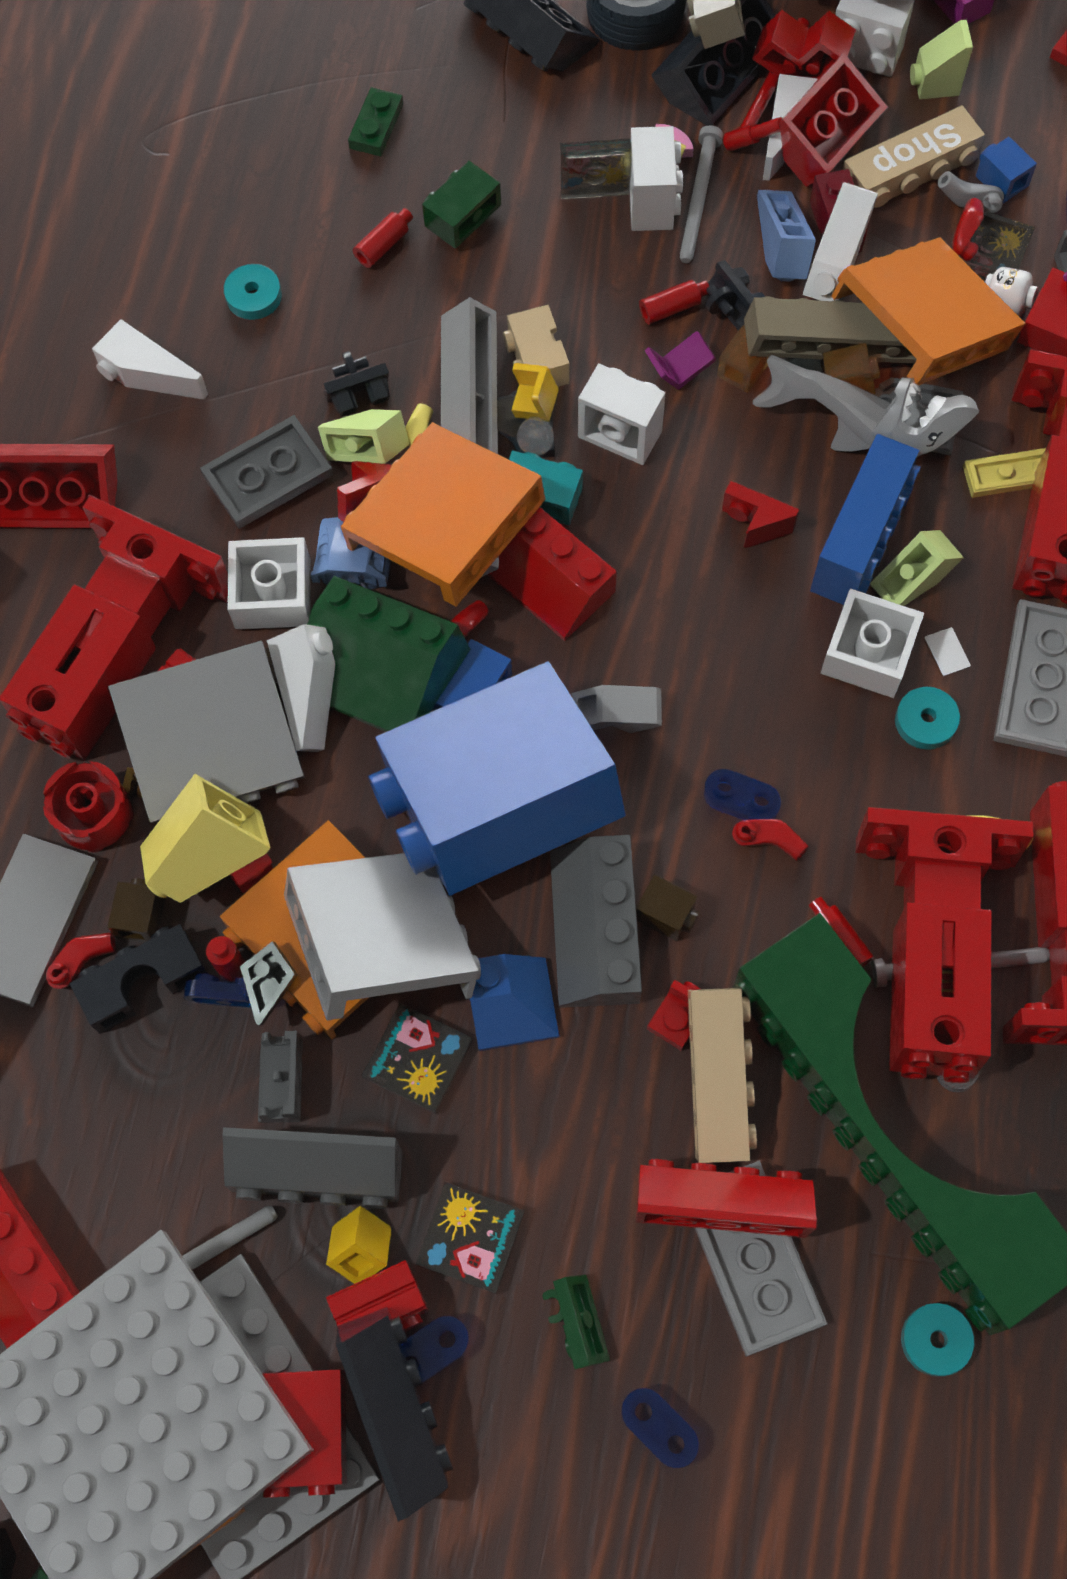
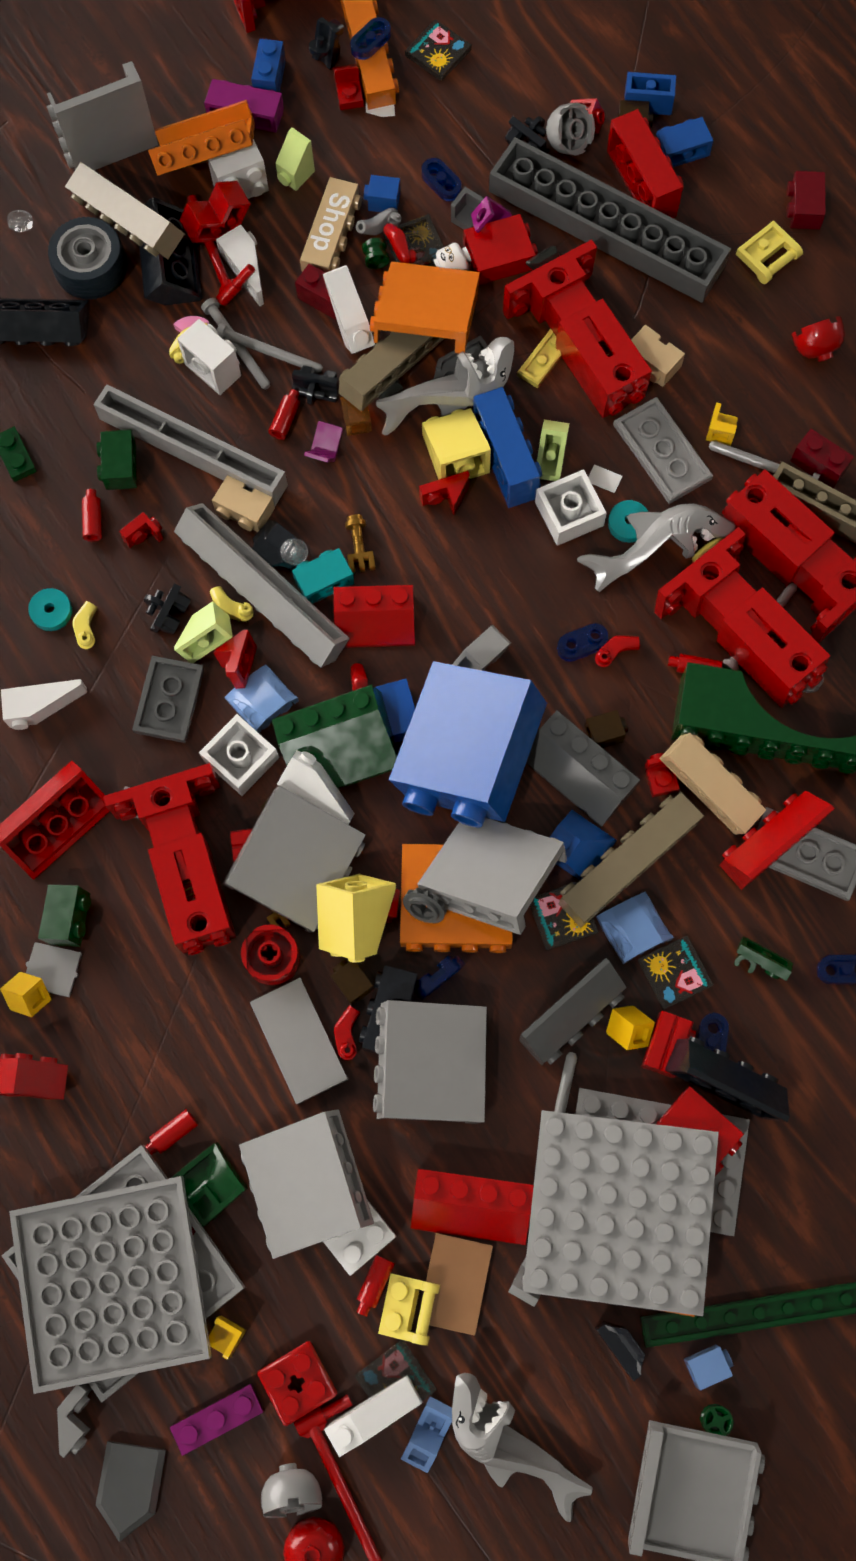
camera: 45 degrees left, 5 degrees up
(115, 1068) = (430, 1062): none -> light grey panel
(225, 958) = (424, 959): red cylinder -> none
(264, 331) = (82, 627): none -> light yellow arm
(267, 980) = (459, 948): piece -> none
(274, 899) = (417, 900): none -> dark grey gear
(280, 1078) = (509, 990): dark grey hinge -> none
(412, 286) = (138, 528): none -> red bracket
(445, 510) = (296, 632): orange panel -> none
(478, 1144) = (633, 927): none -> medium blue slope
(535, 391) = (271, 529): yellow panel -> none
(546, 247) = (188, 443): none -> light grey brick
(547, 1067) = (630, 859): none -> dark tan brick
(595, 168) = (172, 377): clear smoke tile -> none
(620, 413) = (327, 499): white brick -> none
(629, 465) = (355, 524): none -> pearl gold hinge
(692, 169) = (267, 349): none -> light grey bar
(785, 235) = (307, 327): medium blue slope -> none
(815, 475) = (457, 444): none -> light yellow slope
(828, 120) = (273, 245): red slope -> none
(853, 366) = (418, 371): clear orange brick -> none
(935, 219) = (375, 253): none -> dark green wheel
(937, 743) = (652, 531): none -> light grey piece

